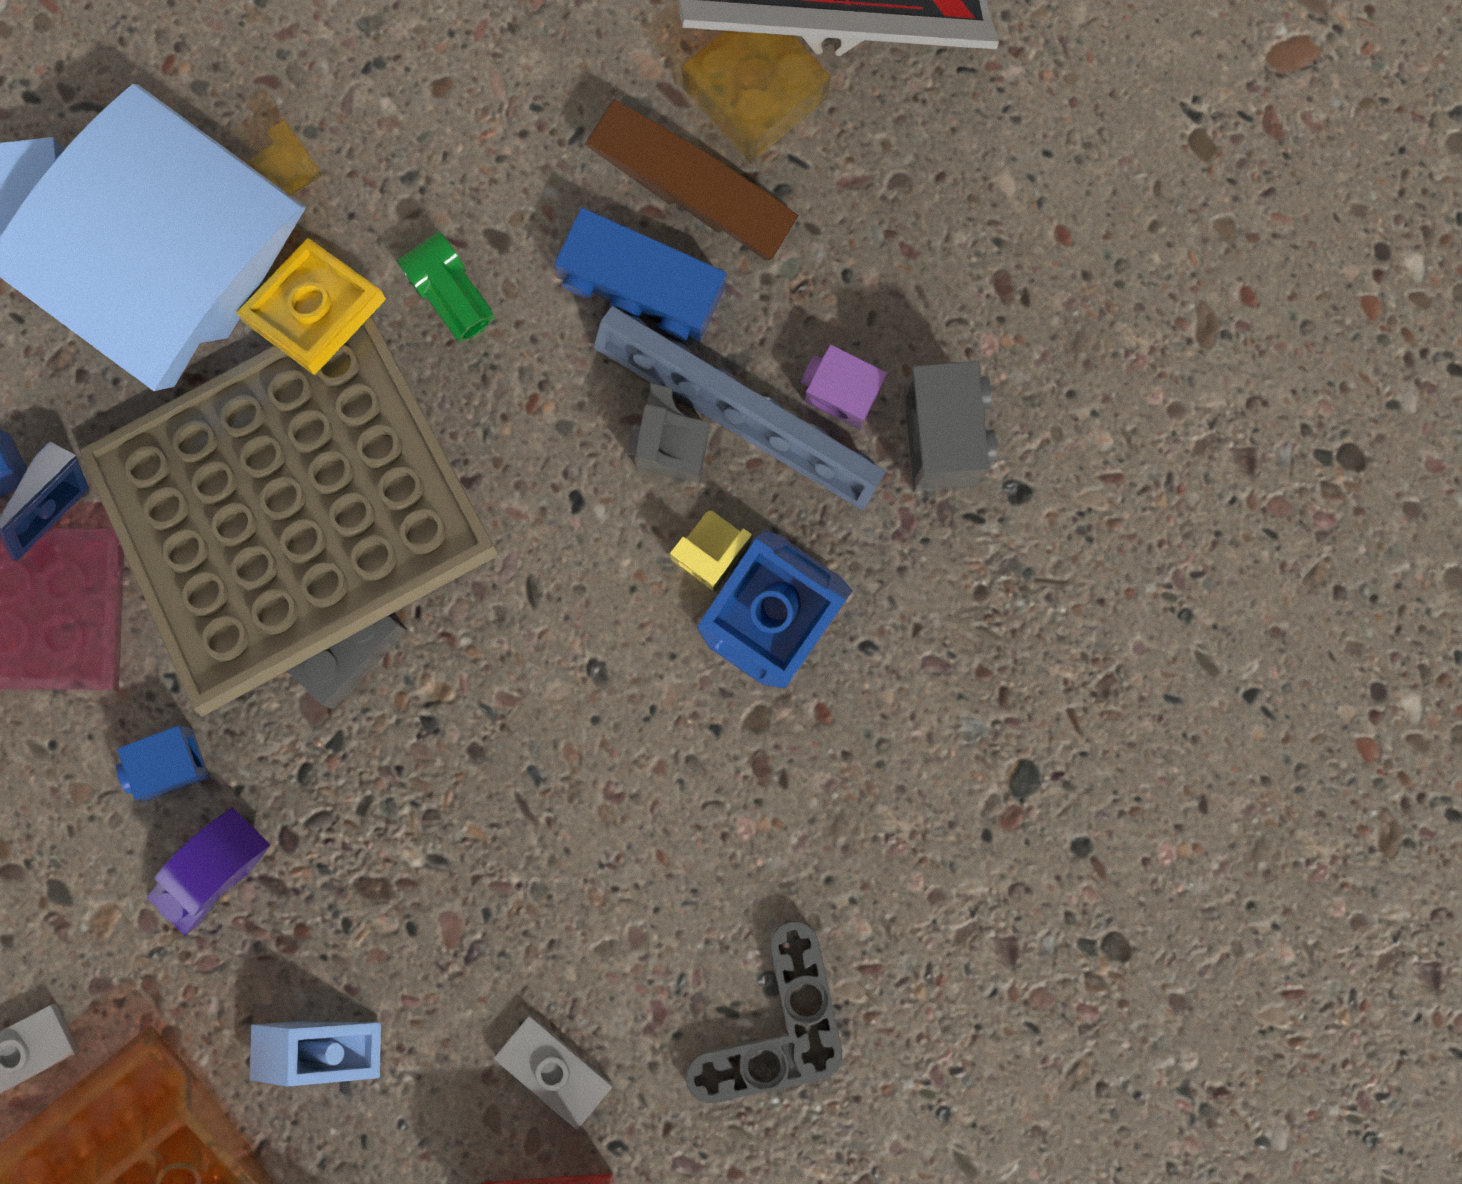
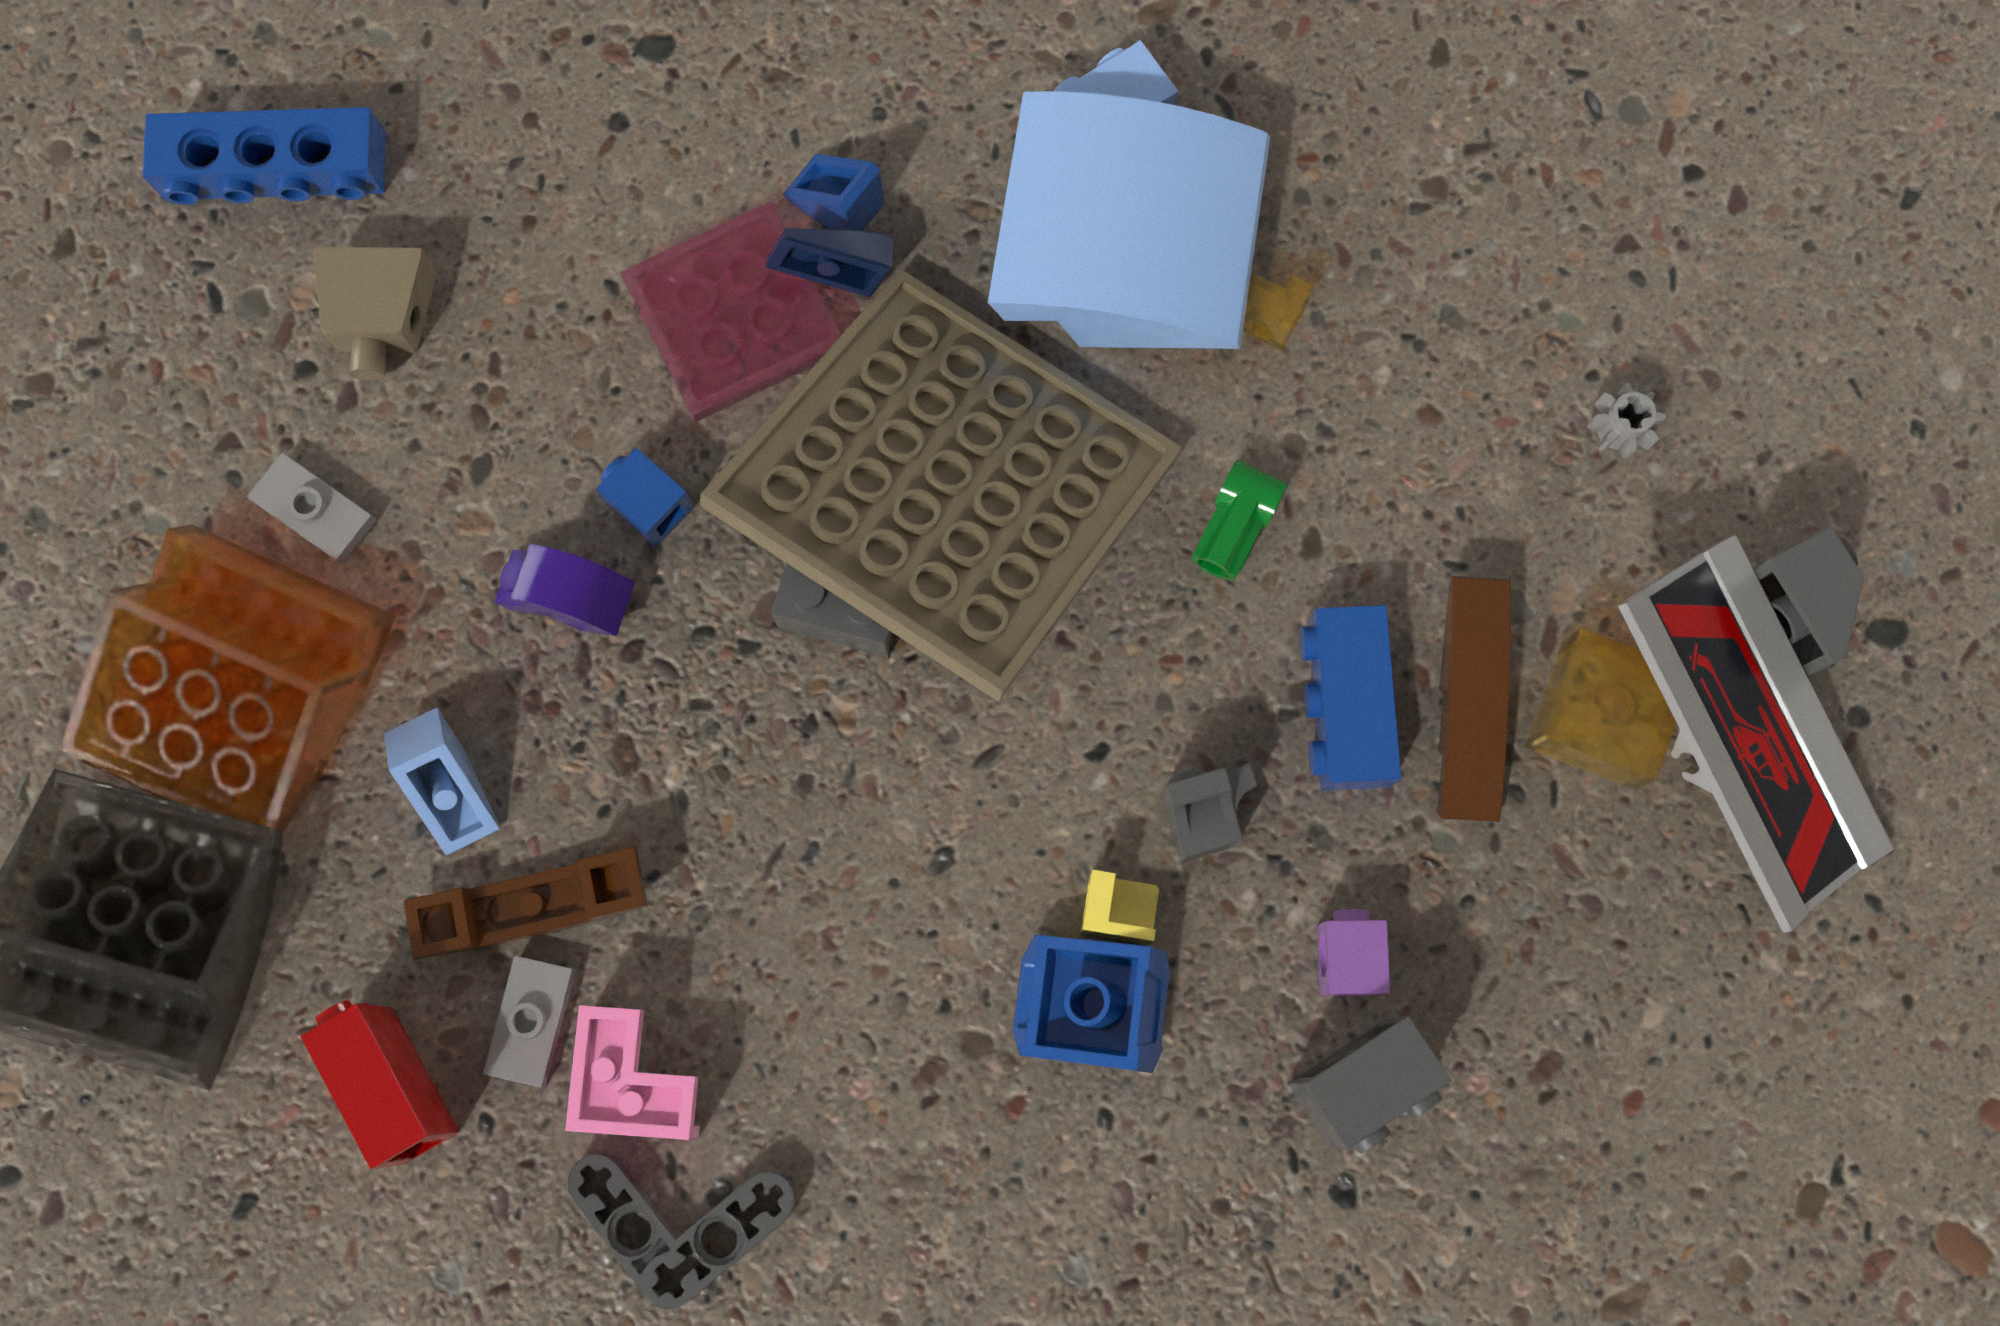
camera: 65 degrees right, 5 degrees down
(311, 306) = (1149, 404): yellow tile -> none
(457, 1028) = (526, 905): none -> reddish brown slope
(645, 1029) = (609, 1091): none -> bright pink panel
(738, 408) = (1273, 865): sand blue plate -> none

